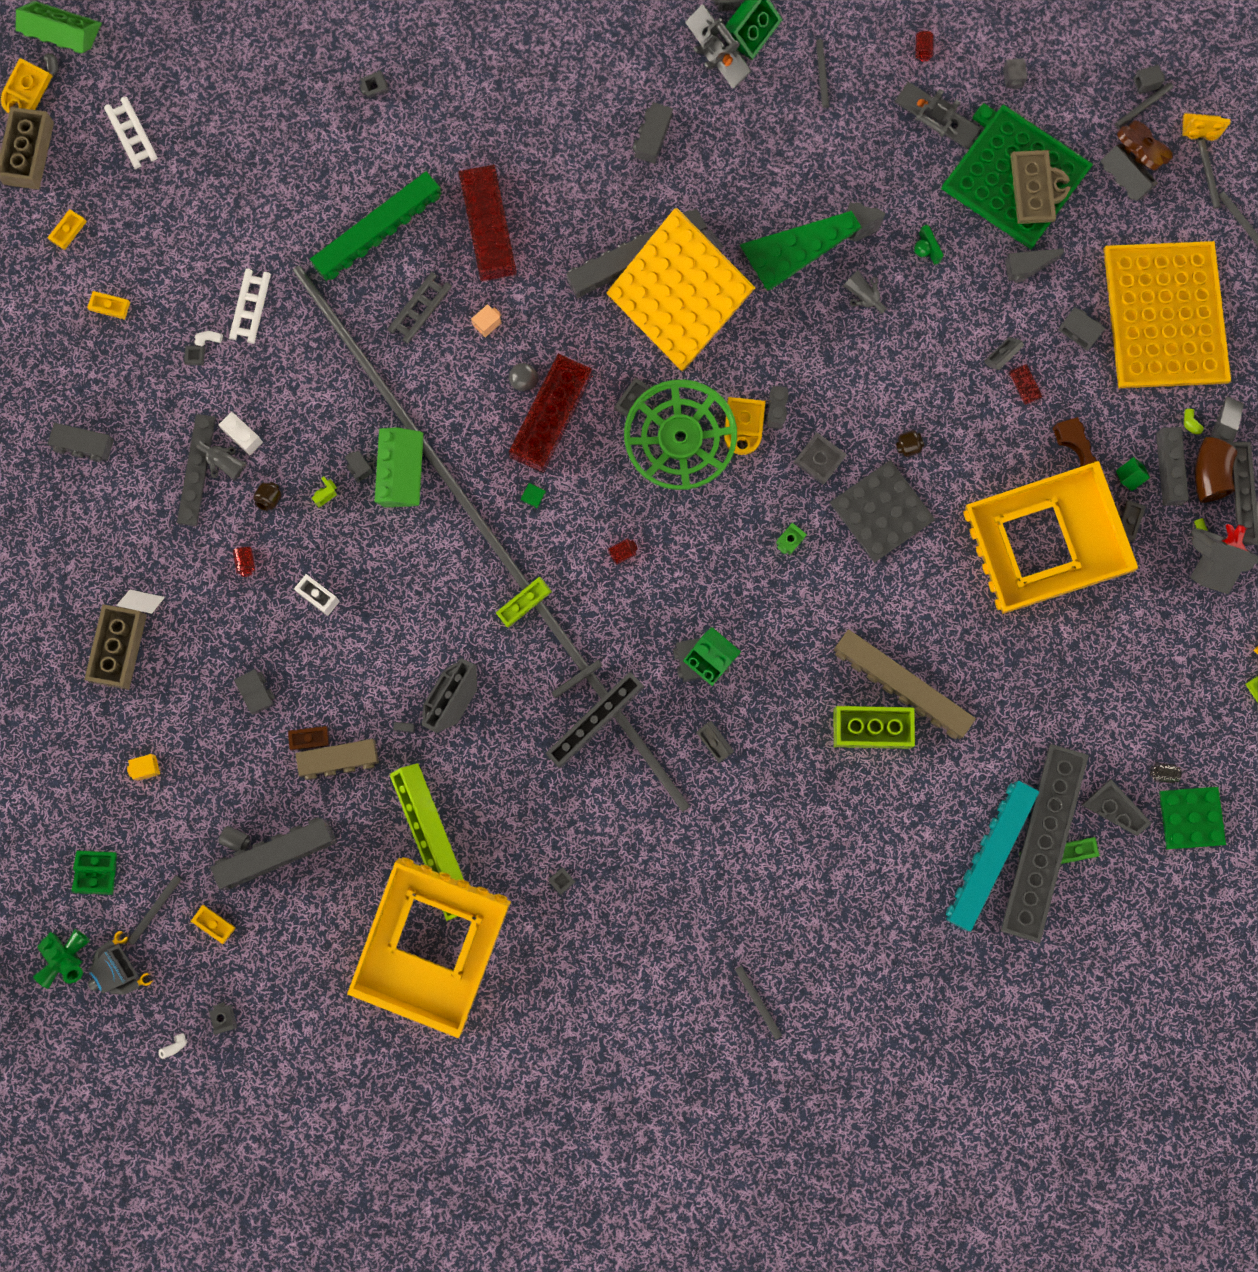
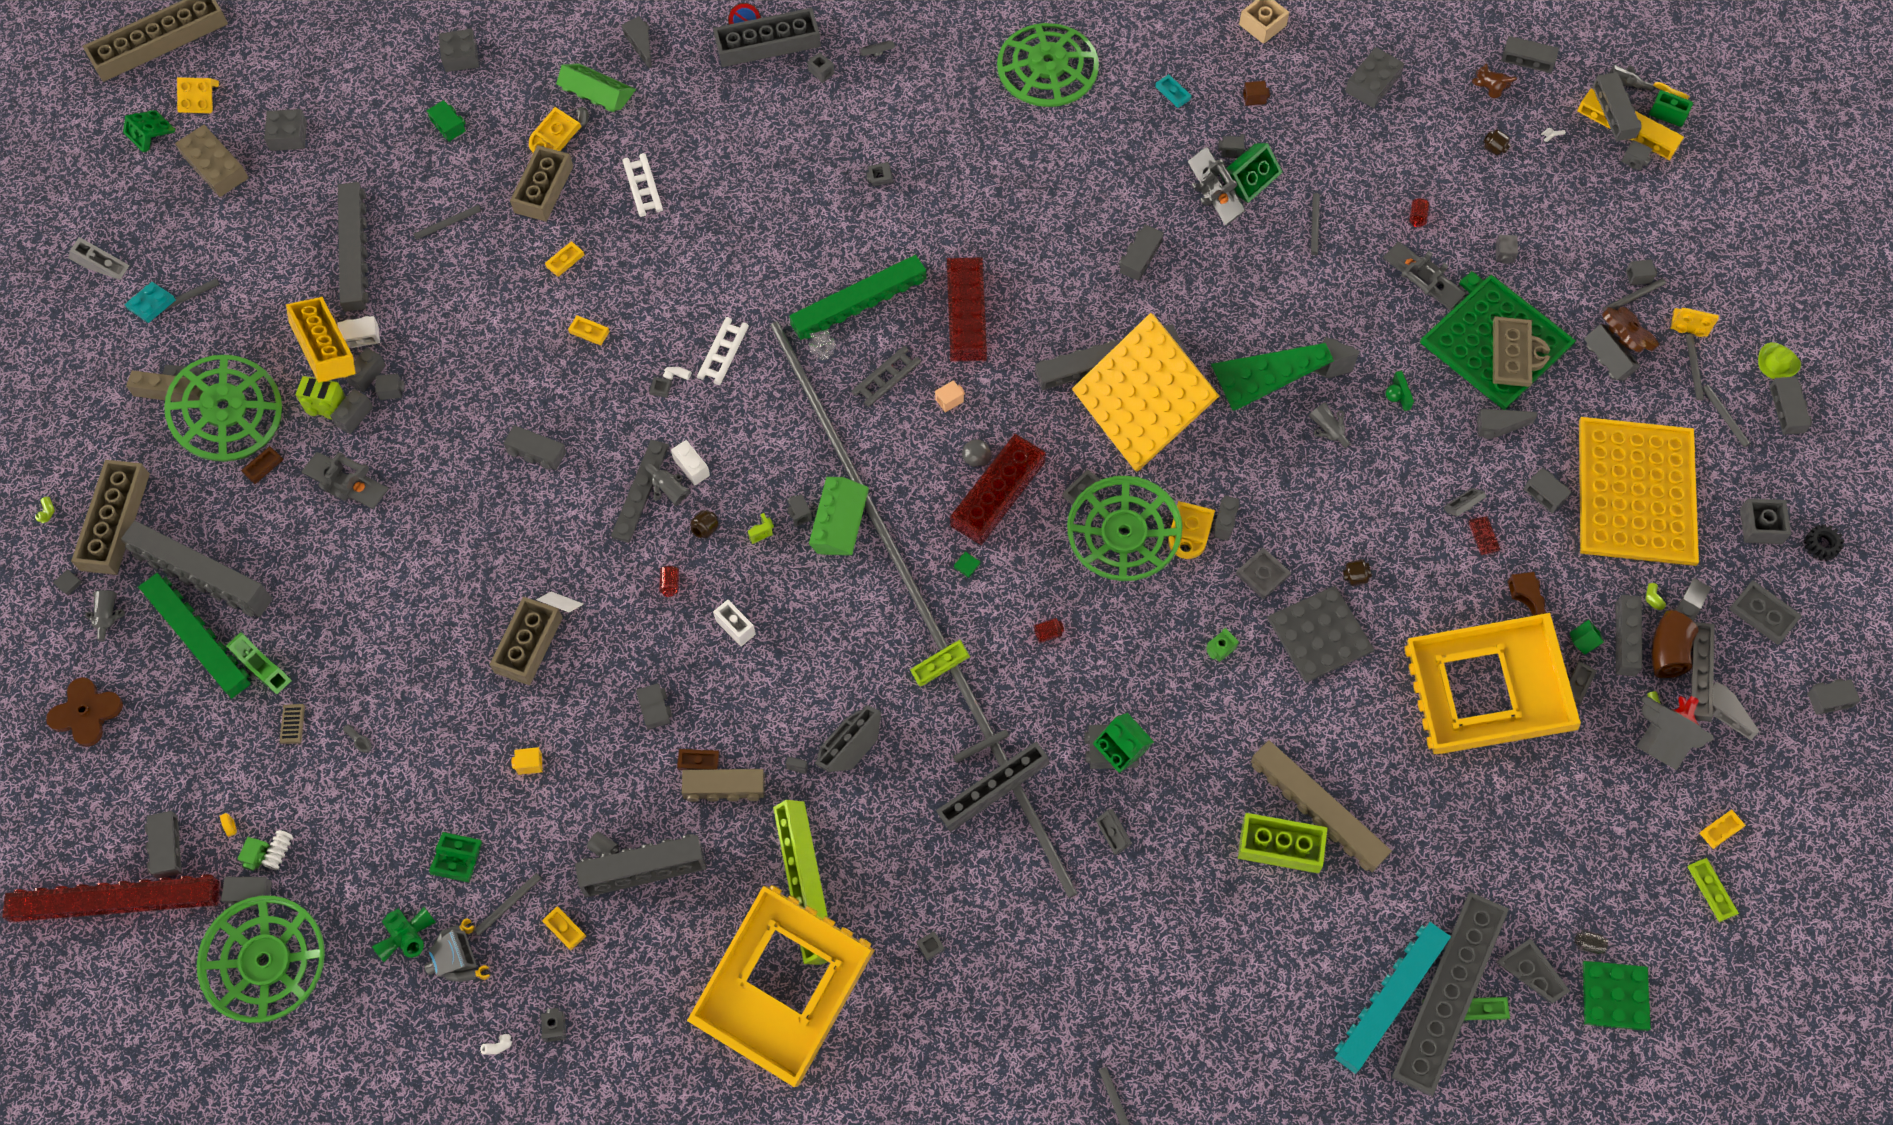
camera: 15 degrees right, 15 degrees down
(349, 285) = (819, 339): none -> clear brick

